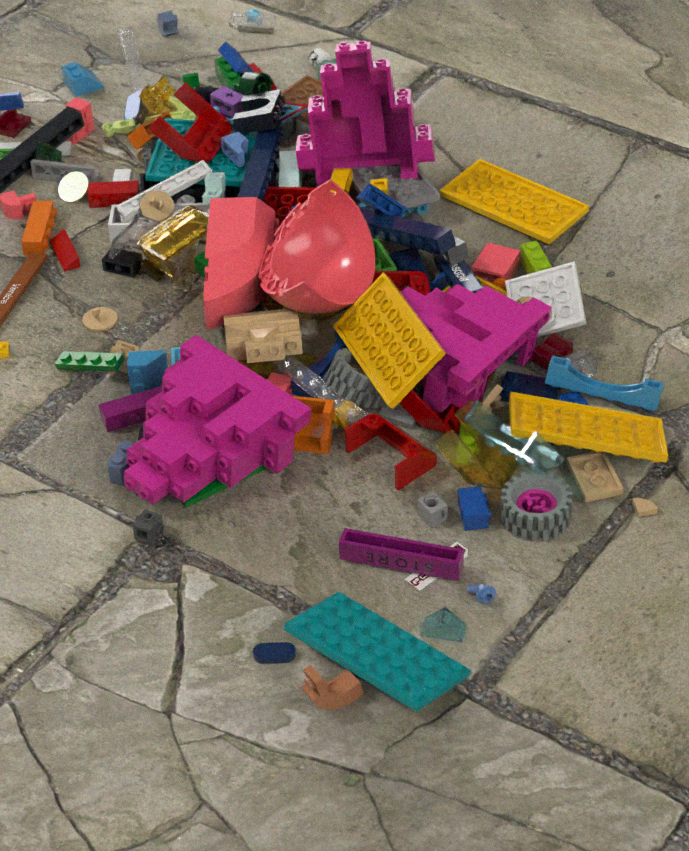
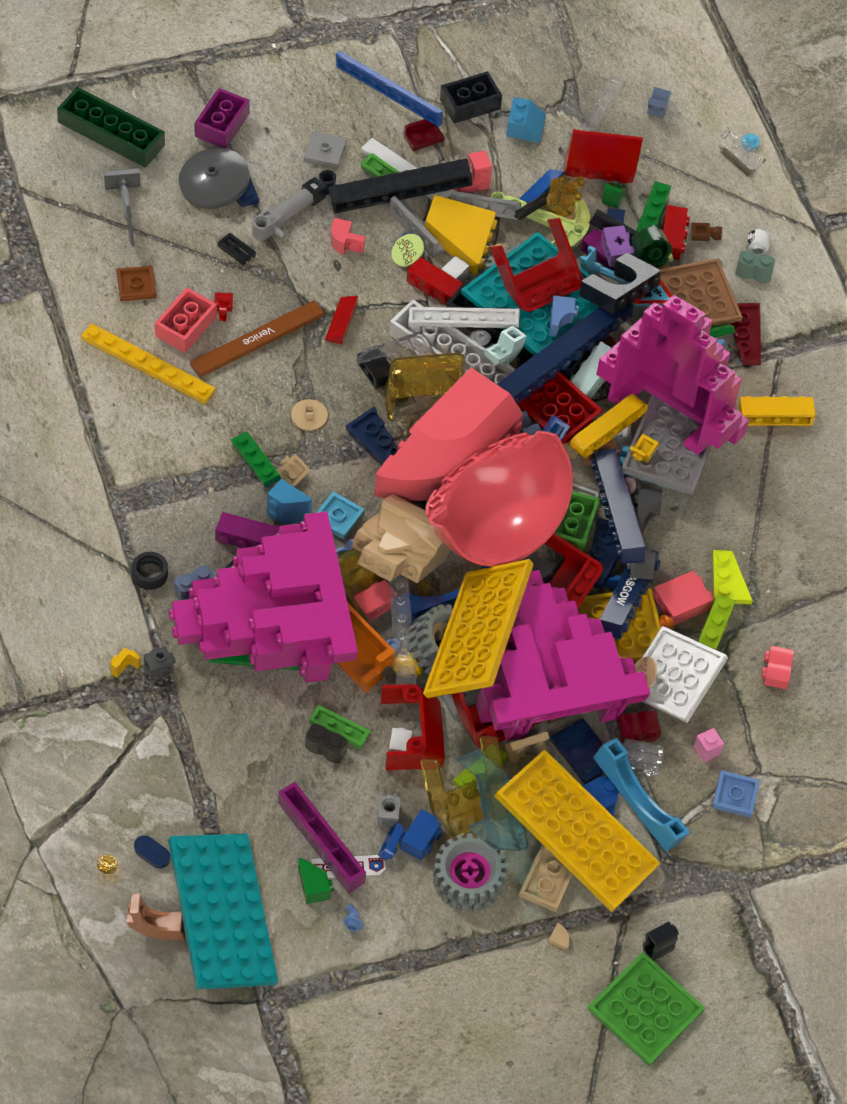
camera: 30 degrees right, 15 degrees up
(31, 81) = (470, 97): none -> black brick
(38, 227) = (341, 277): orange brick -> none
(48, 153) = (414, 200): clear green plate -> none
(72, 467) = (147, 558): none -> black tyre
(103, 134) = (502, 207): none -> light grey plate
(103, 153) = (461, 230): none -> yellow slope
(118, 539) = (121, 661): none -> yellow bracket
(143, 135) = (518, 234): orange brick -> none
(157, 205) = (443, 331): tan piece -> none
(164, 302) = (372, 435): none -> dark blue wing
(165, 56) = (602, 156): none -> red slope
(234, 58) = (671, 195): blue slope -> none
(247, 683) = (107, 864): none -> clear yellow tile
(279, 72) = (703, 232): none -> reddish brown plate
(335, 483) = (354, 733): none -> bright green plate
(337, 497) = (326, 743): none -> clear smoke brick
(380, 201) = (628, 468): blue slope -> none
(388, 460) = (399, 739): none -> white brick
(425, 588) = (314, 882): none -> green slope
(444, 626) = (296, 927): clear light blue slope -> none
(449, 129) = (777, 410): none -> yellow brick
(455, 526) = (393, 837): none -> blue plate
(509, 237) = (728, 578): none -> neon yellow wing
(514, 201) = (770, 537): yellow plate -> none
(605, 264) = (778, 667): none -> coral brick
(612, 332) = (708, 745): none -> bright pink brick
(663, 349) = (736, 794): none -> medium blue plate

